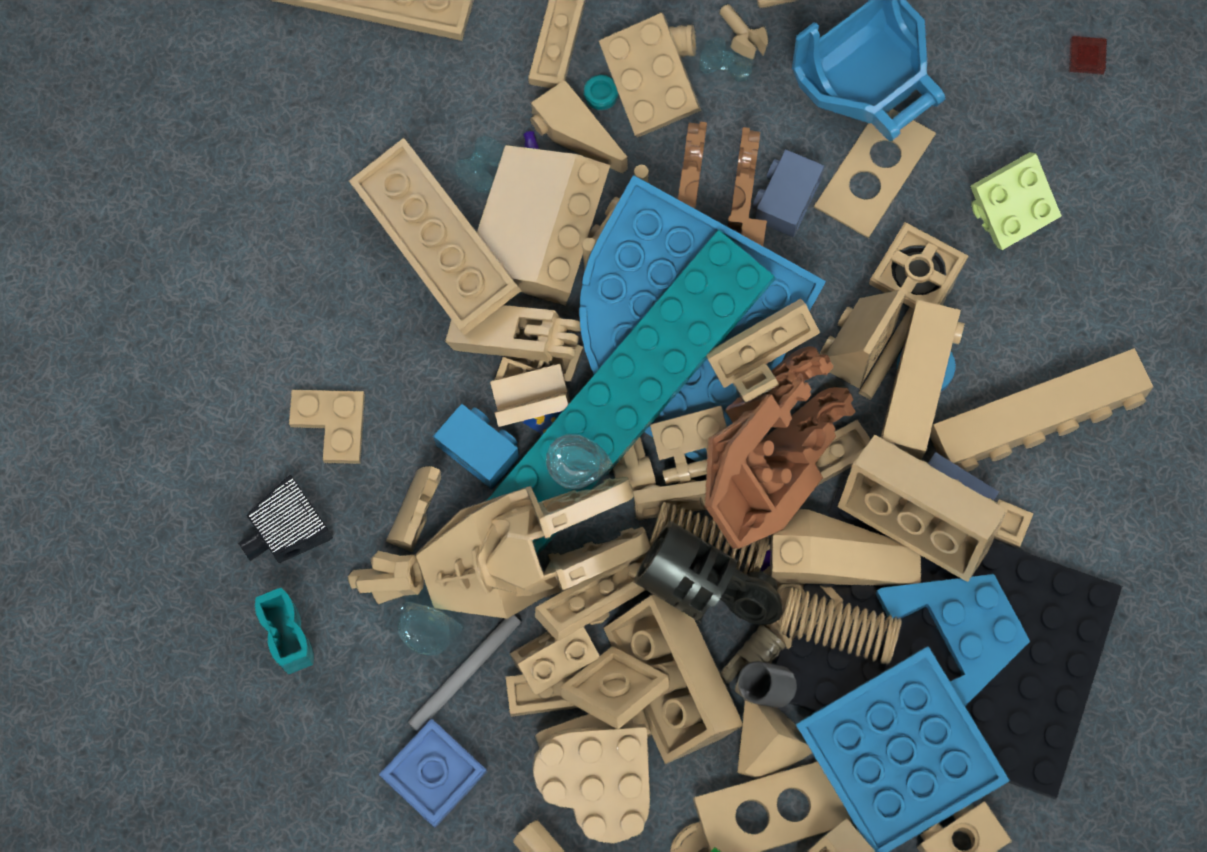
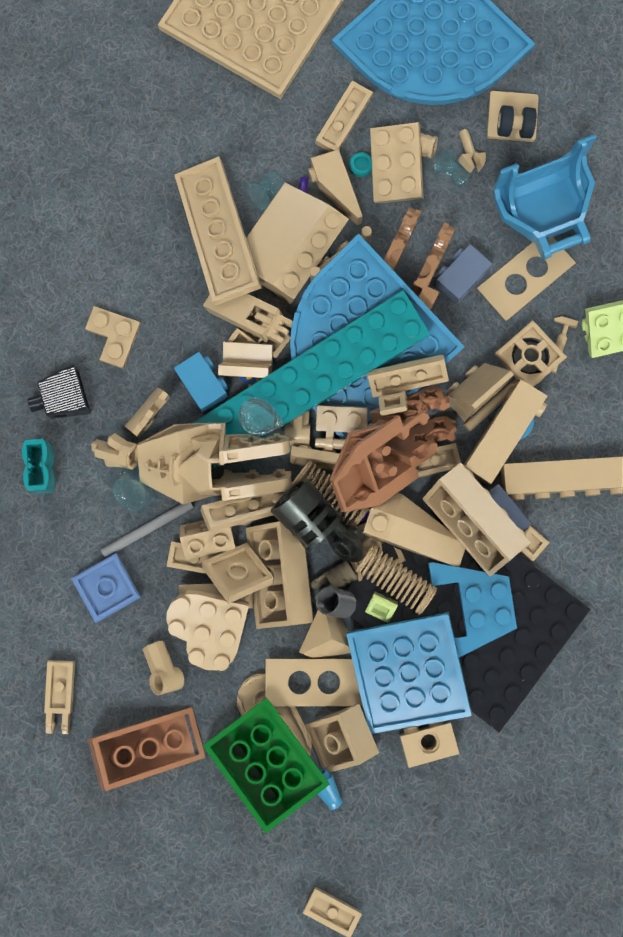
camera: 15 degrees right, 10 degrees up
(832, 673) = (381, 606): none -> yellowish green slope
(952, 236) = (562, 338): none -> tan piece

